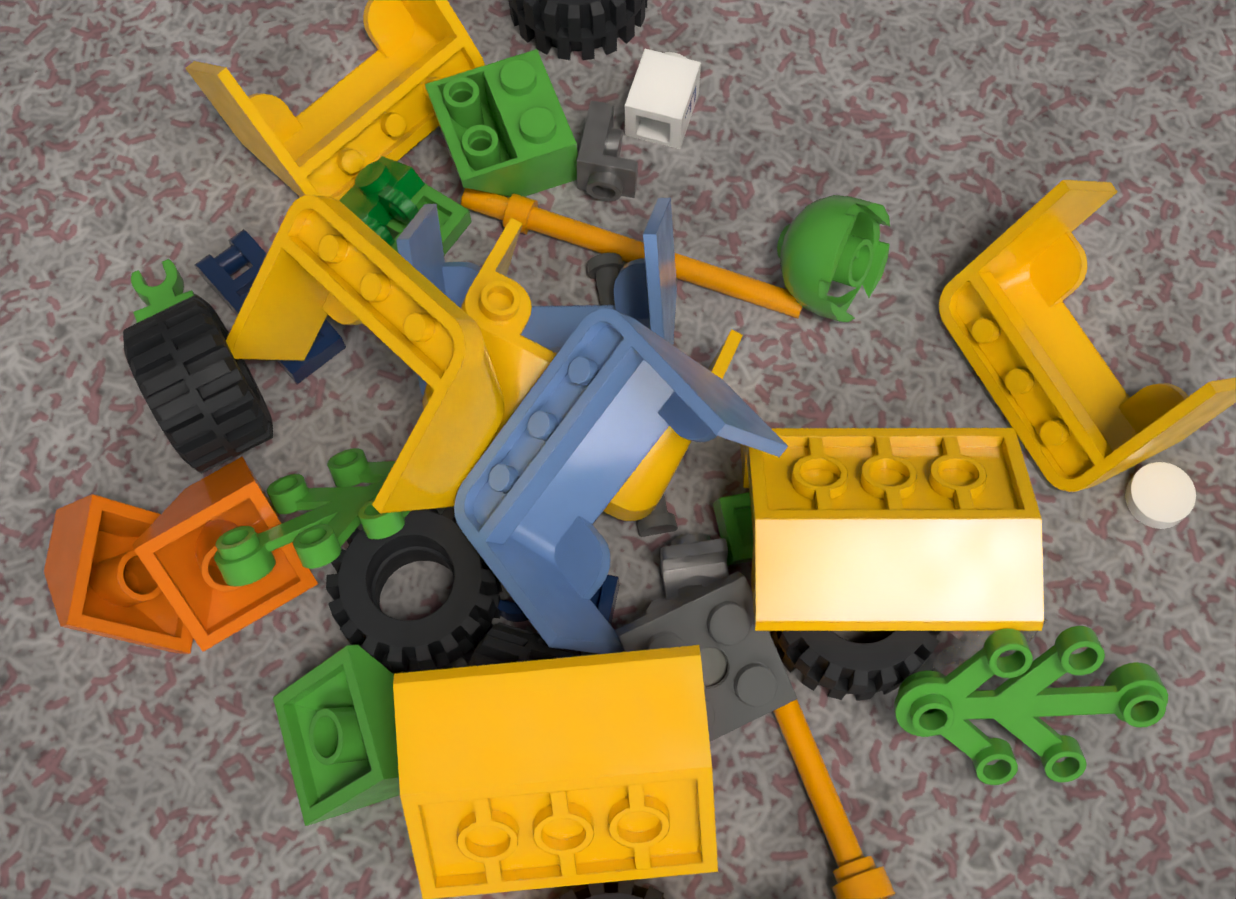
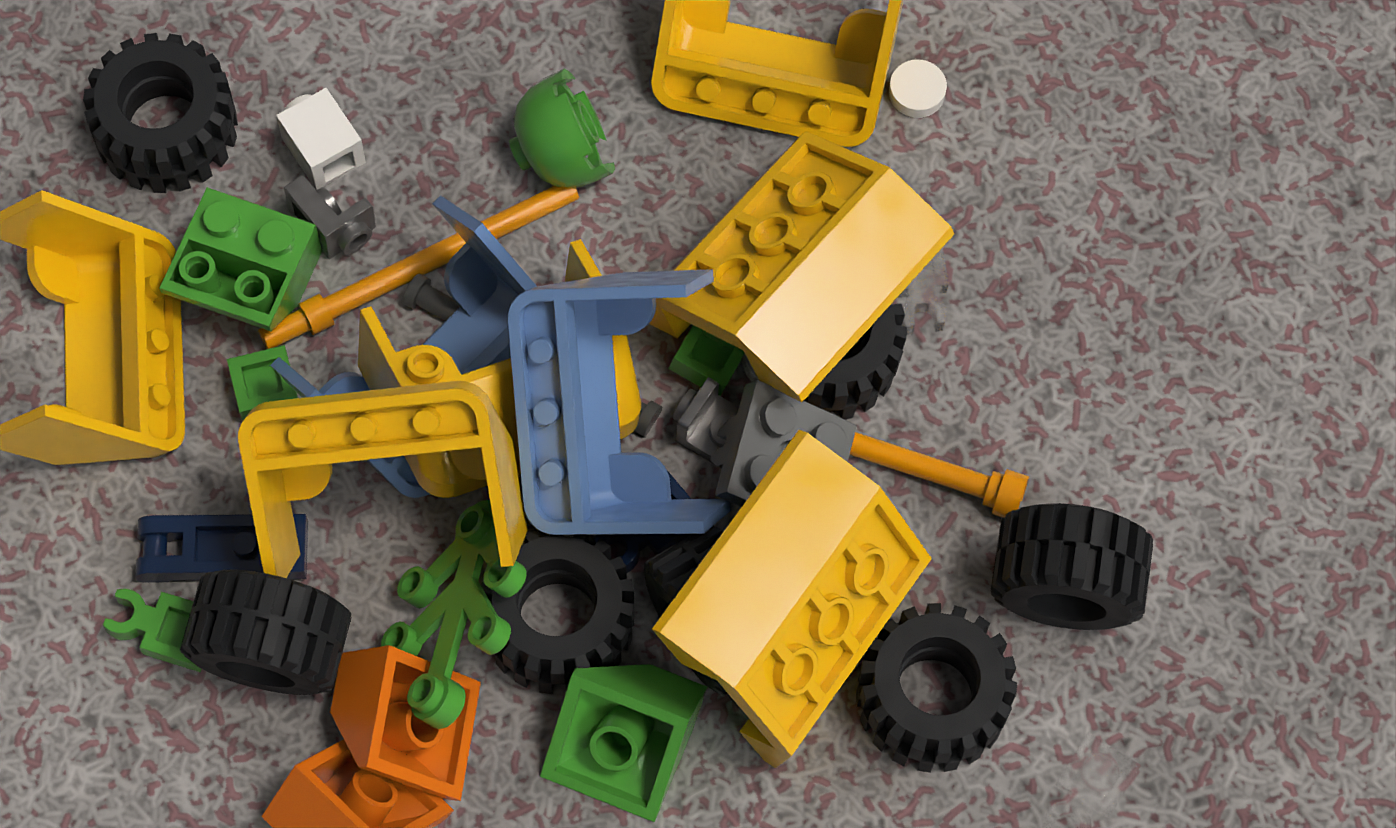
camera: 55 degrees left, 0 degrees up
(383, 193) = (211, 416): green hinge -> none
(942, 704) = (939, 342): bright green plant -> none

